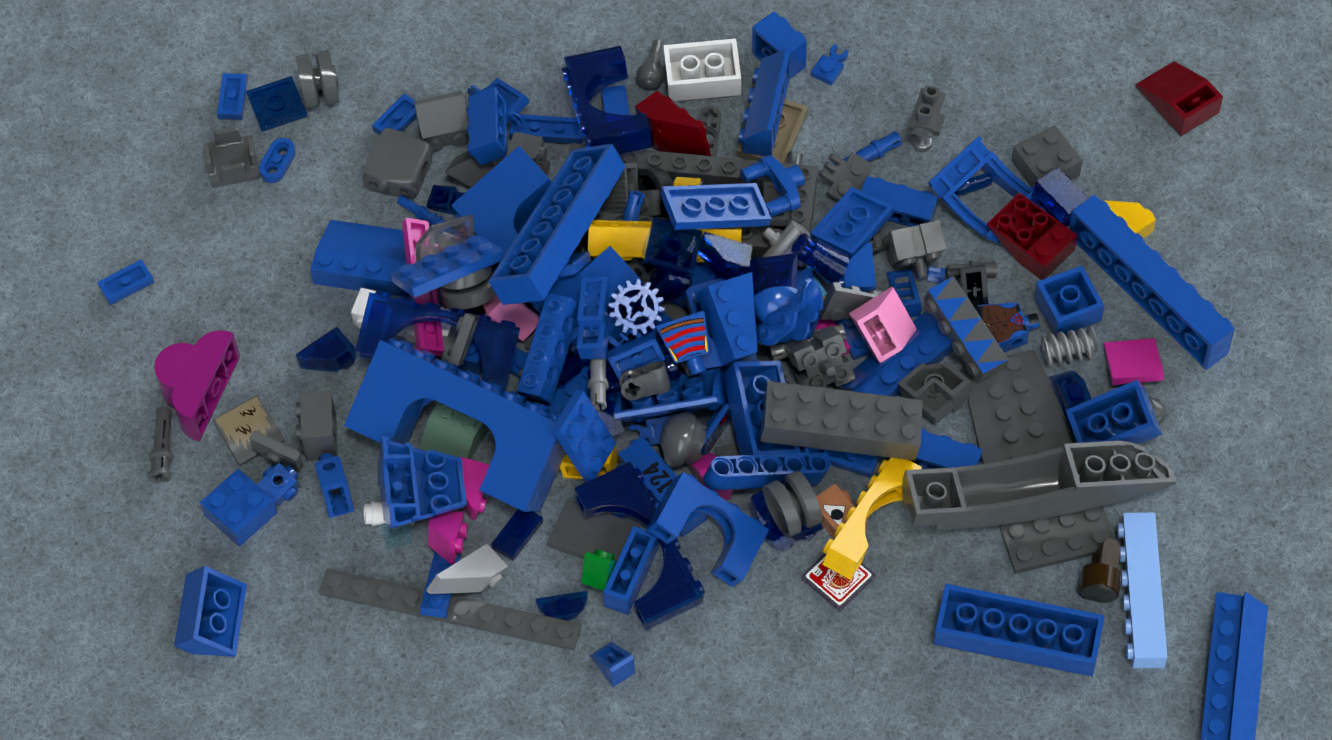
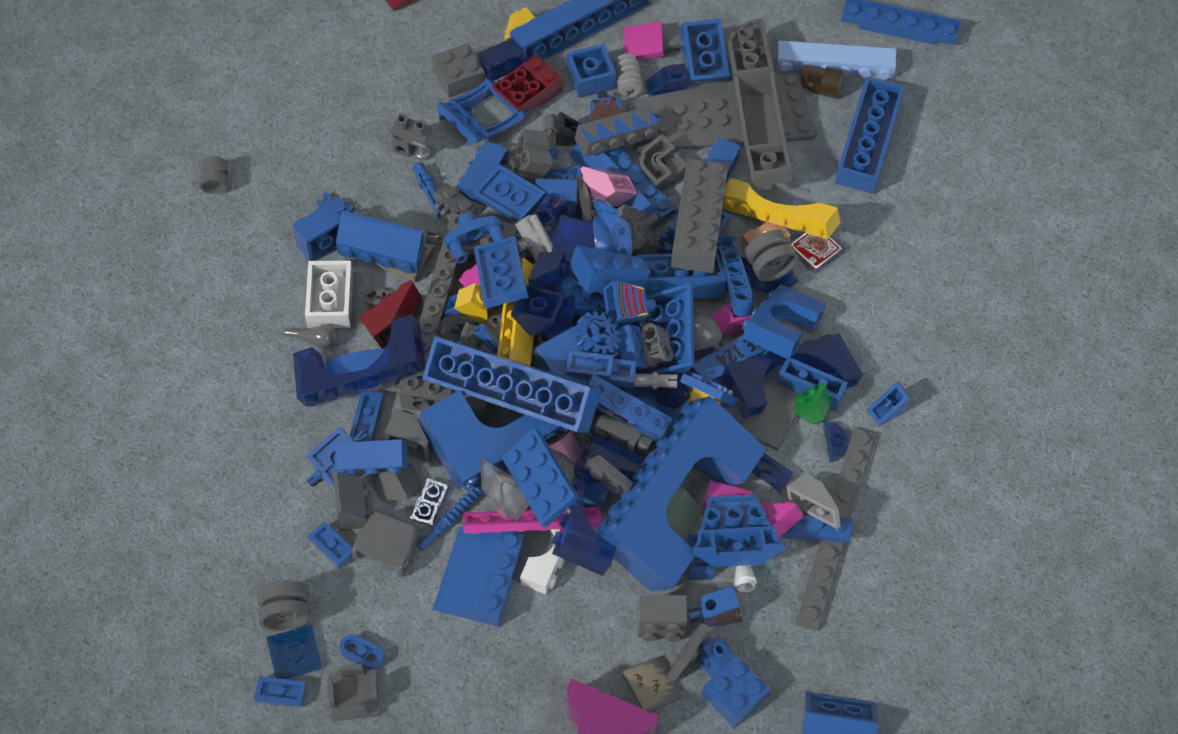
camera: 90 degrees left, 0 degrees up
(328, 353) = (579, 609): clear blue slope -> none

